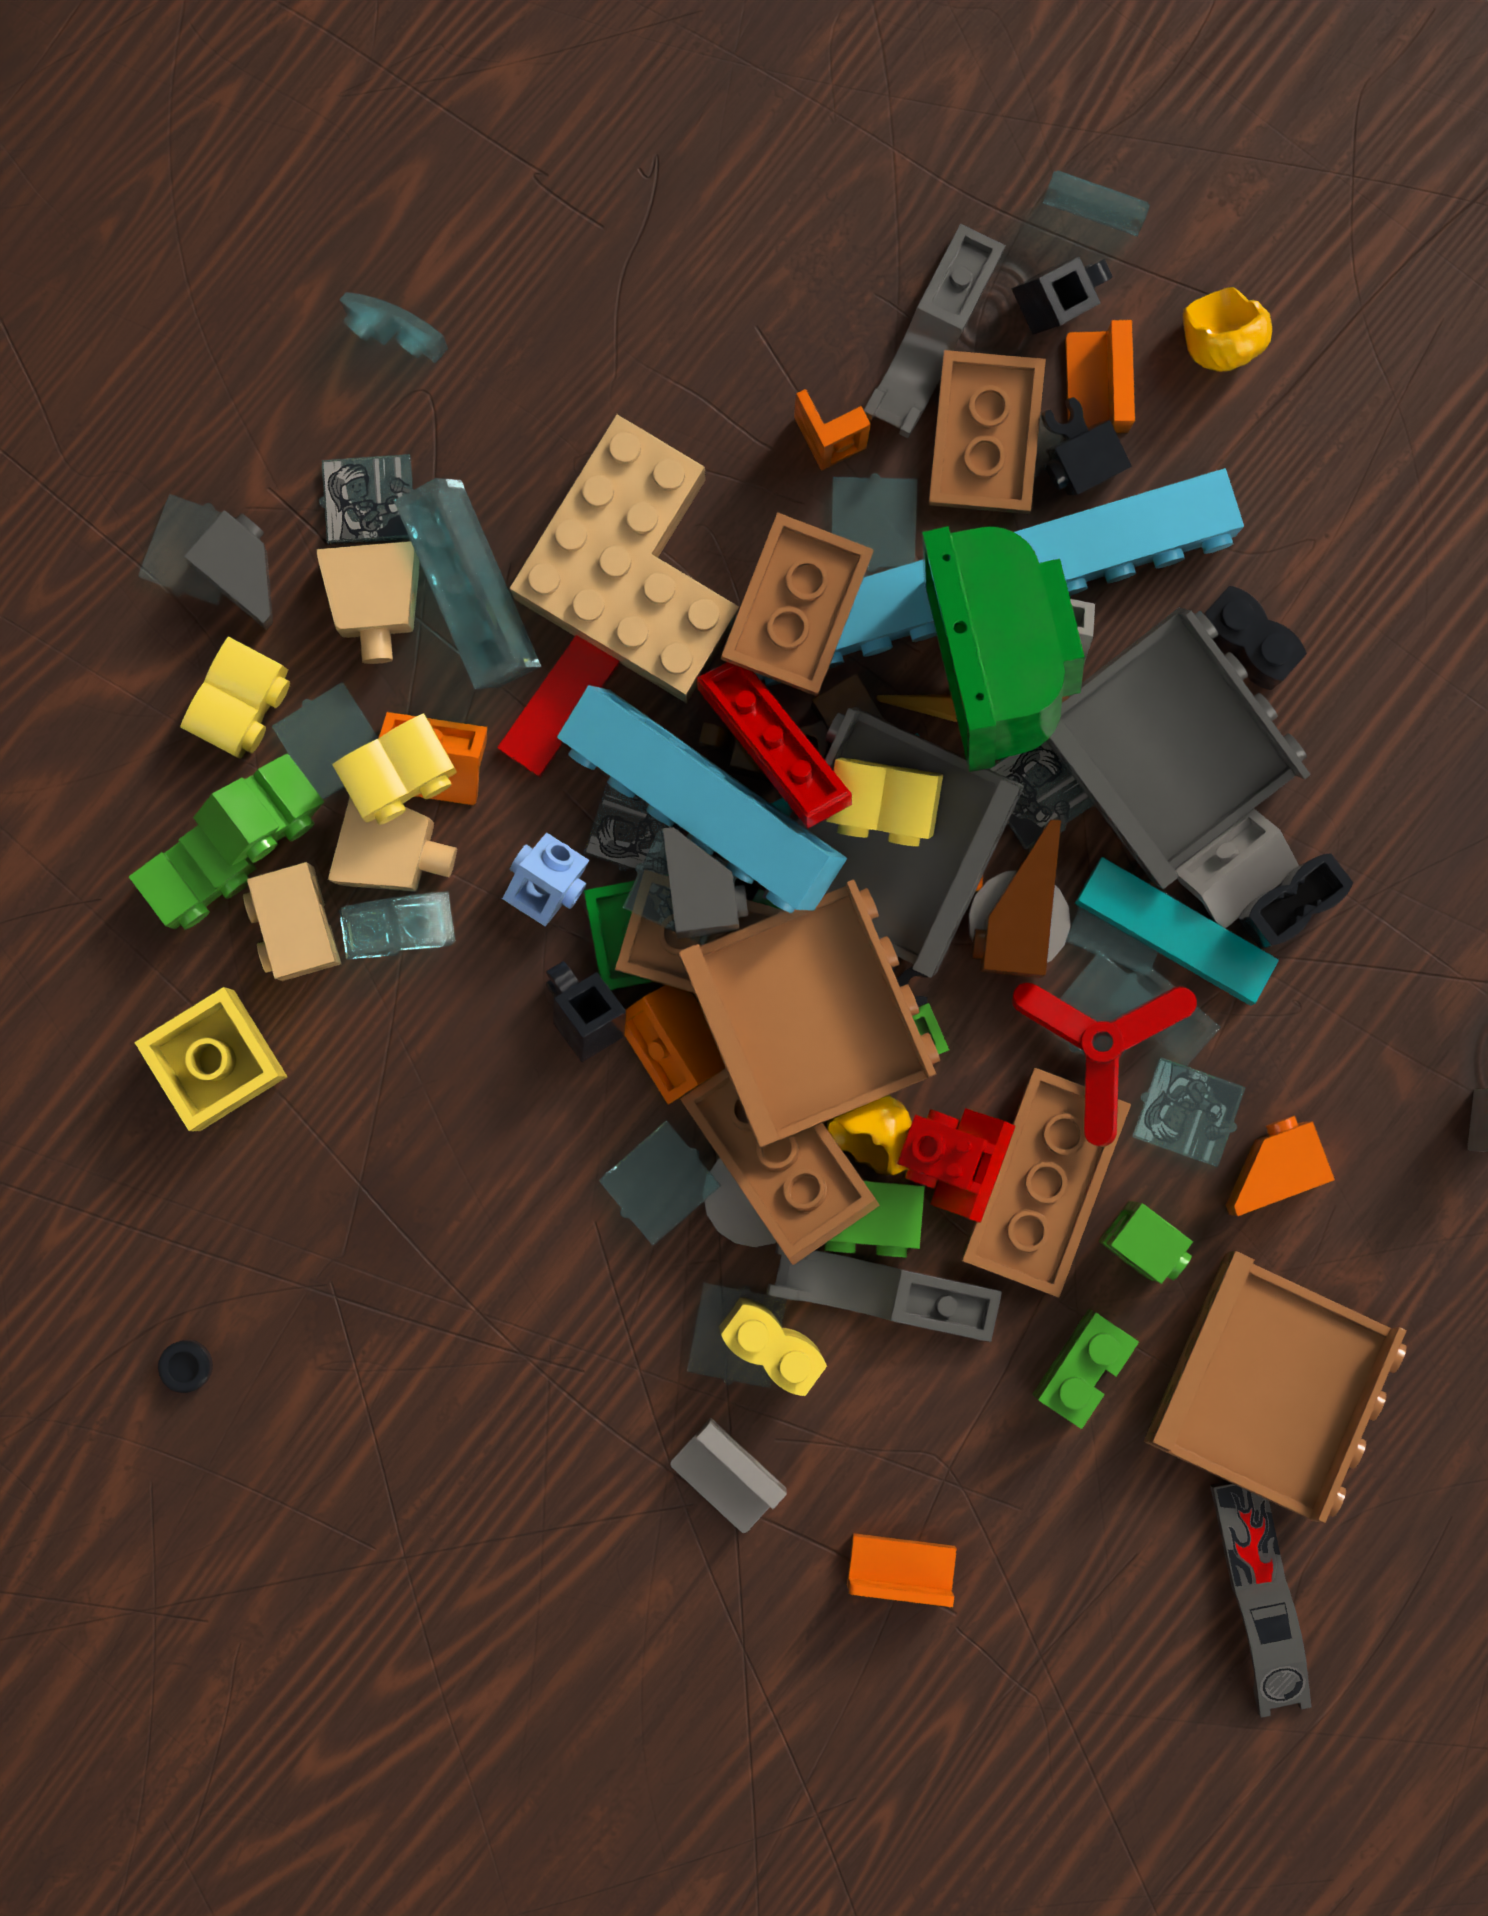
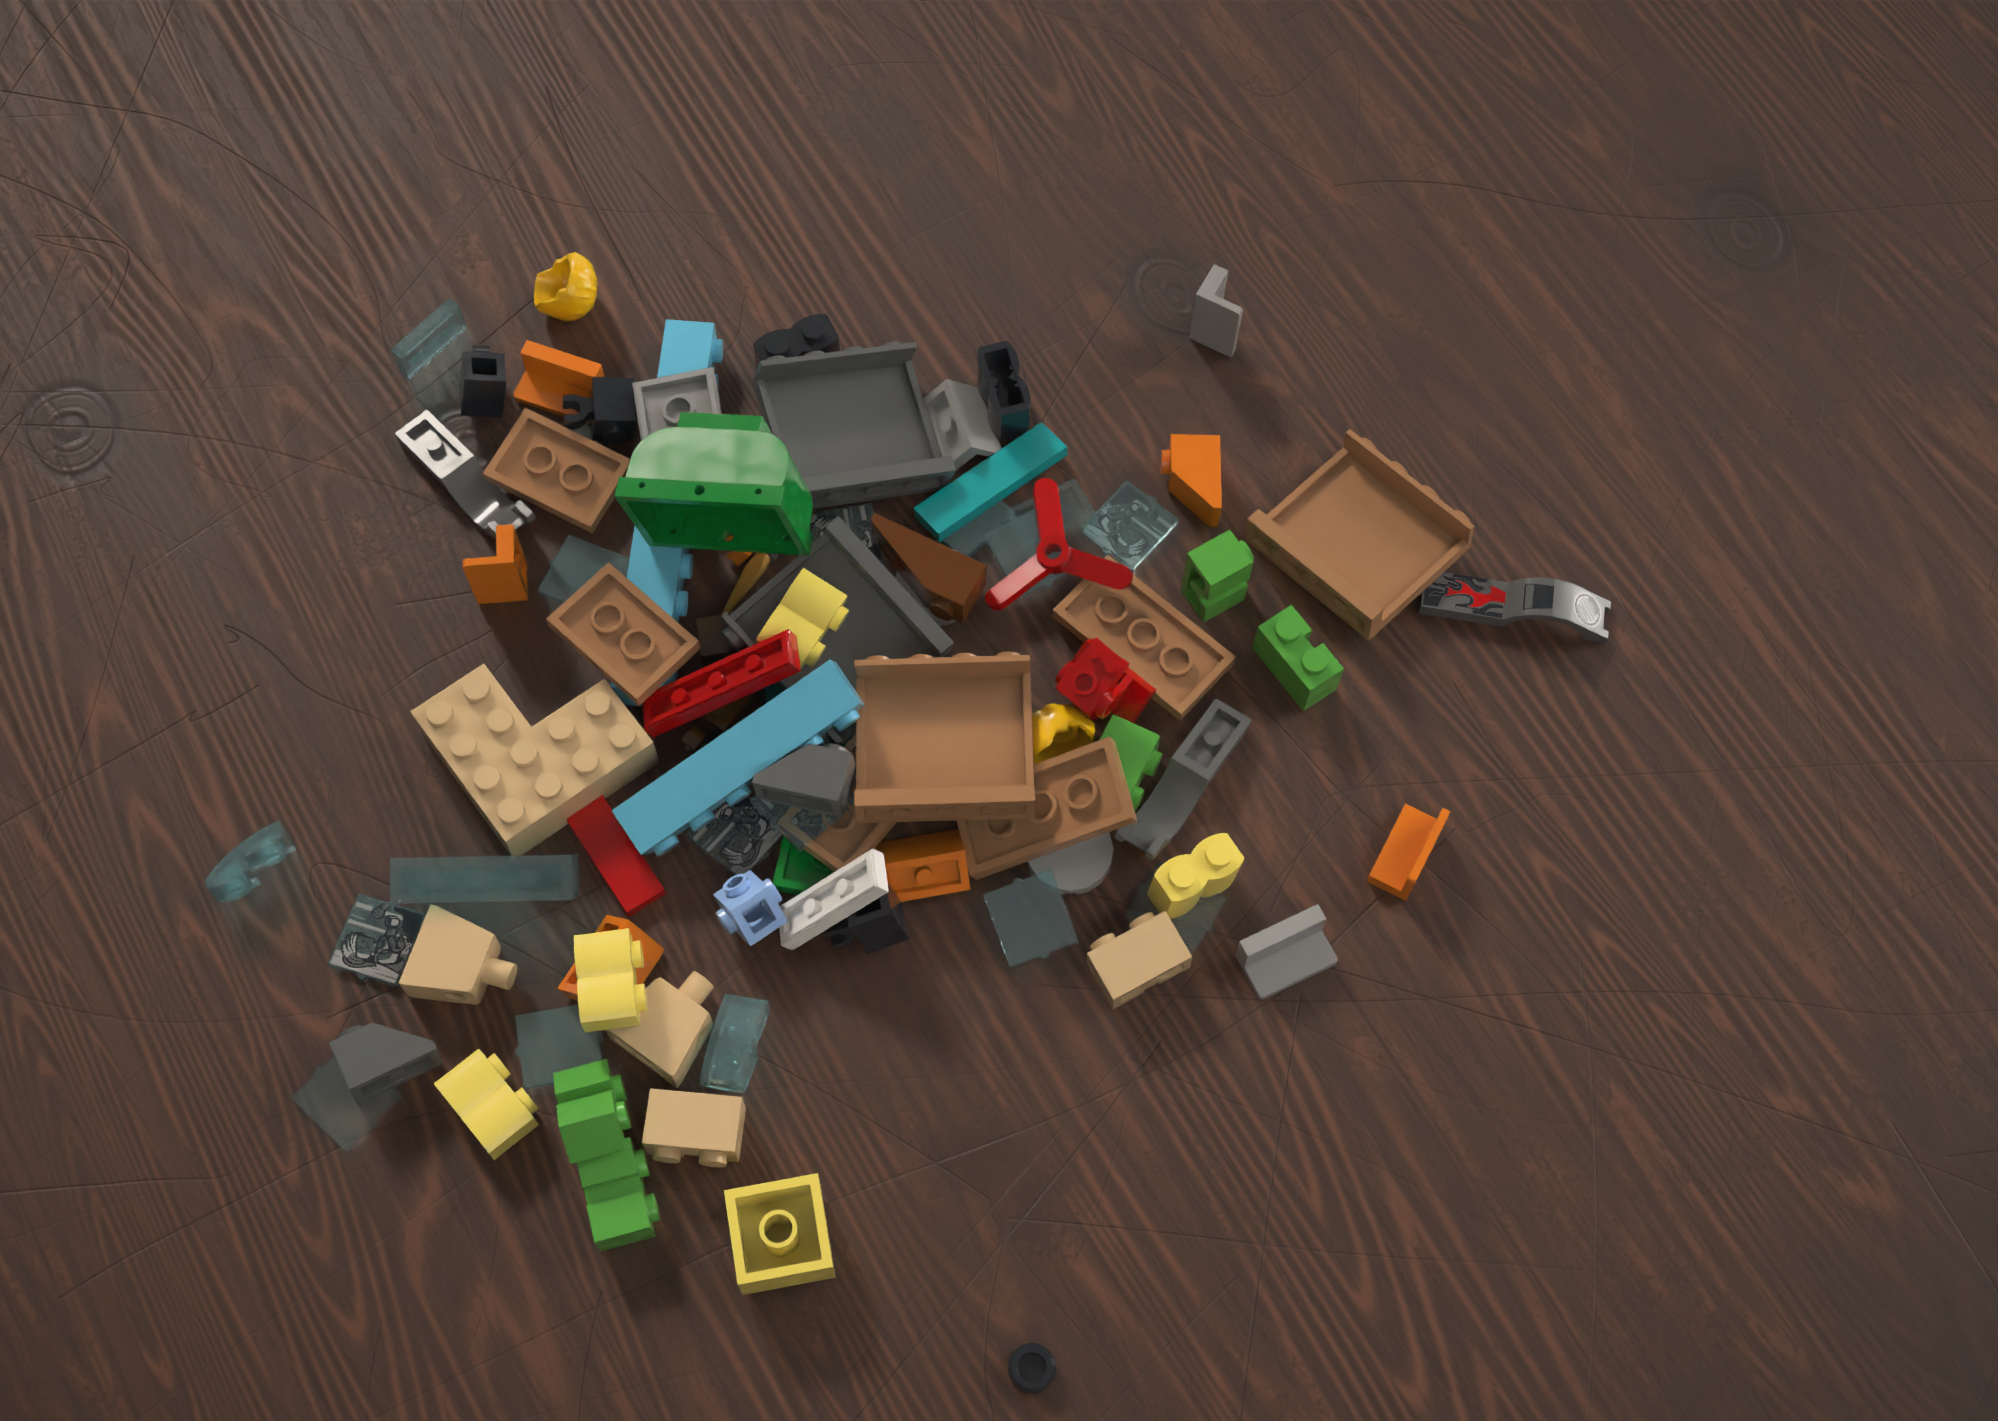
camera: 70 degrees left, 20 degrees down
(583, 967) = (833, 899): none -> white tile
(653, 1317) = (1138, 958): none -> tan brick
(1103, 541) = (663, 399): none -> light grey tile

